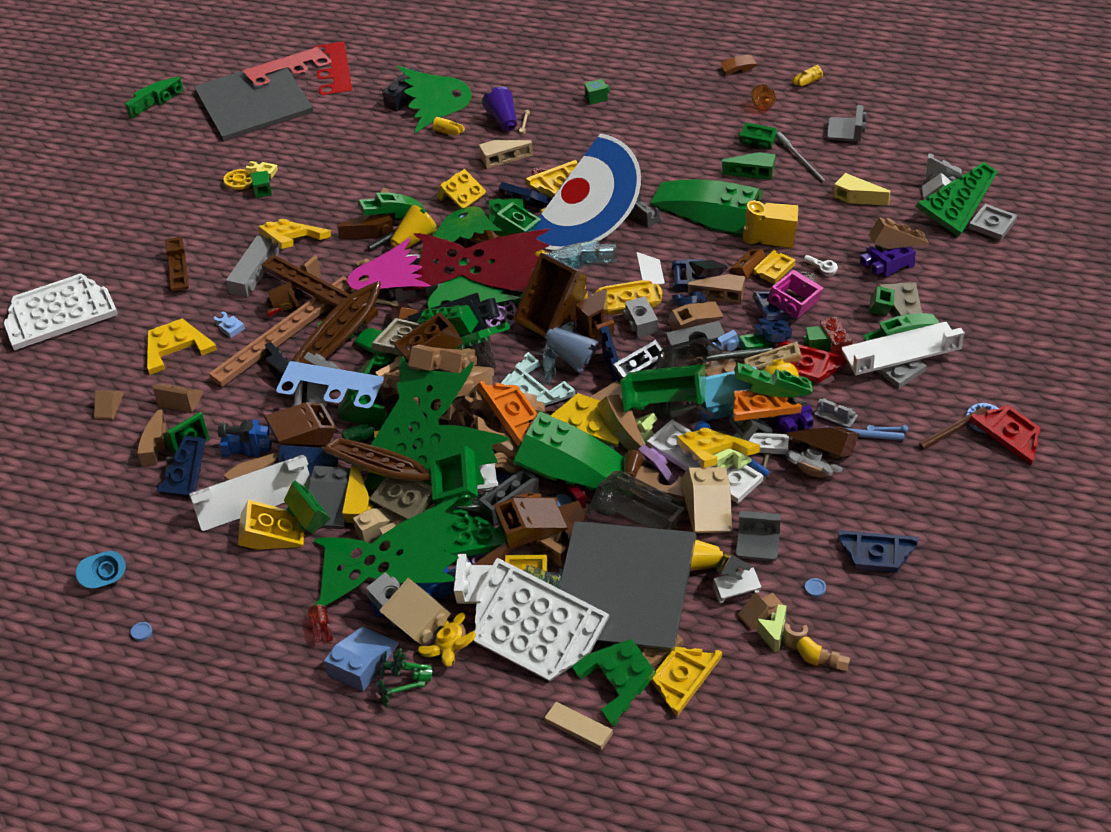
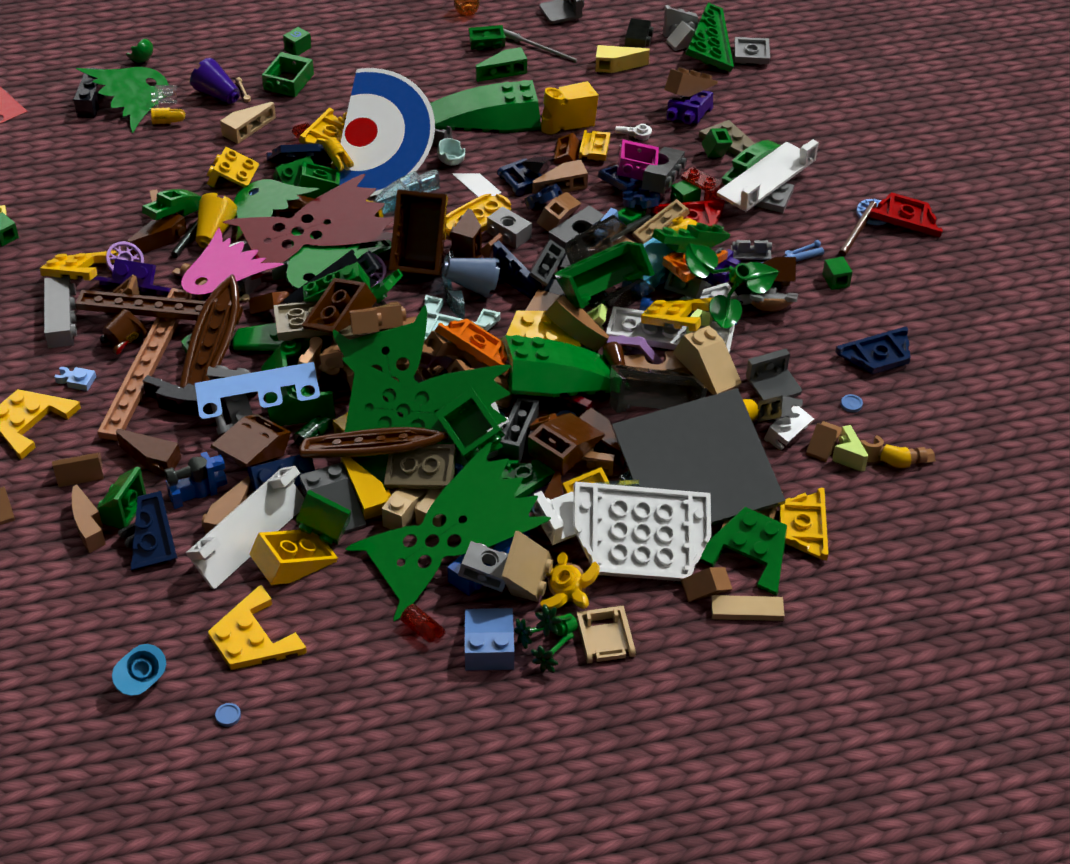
camera: 35 degrees left, 0 degrees up
(192, 575) = (243, 640): none -> yellow wing
(234, 404) = (149, 451): none -> reddish brown slope
(325, 254) = (144, 272): none -> dark purple bracket
(327, 239) = (124, 255): none -> lavender wheel
(447, 700) = (605, 640): none -> tan container
(456, 107) = (164, 94): none -> clear bracket
(467, 64) = (141, 52): none -> green hair
(544, 203) = (337, 153): none -> yellow hinge
(560, 690) = (706, 583): none -> medium nougat slope
(581, 121) = (284, 62): none -> green window
(644, 232) = (450, 152): none -> light aqua hair
(754, 459) = (758, 278): none -> green plant
(798, 316) = (660, 176): none -> dark grey arch
(895, 174) = (639, 33): none -> pearl dark grey brick
(896, 463) = (837, 273): none -> green brick

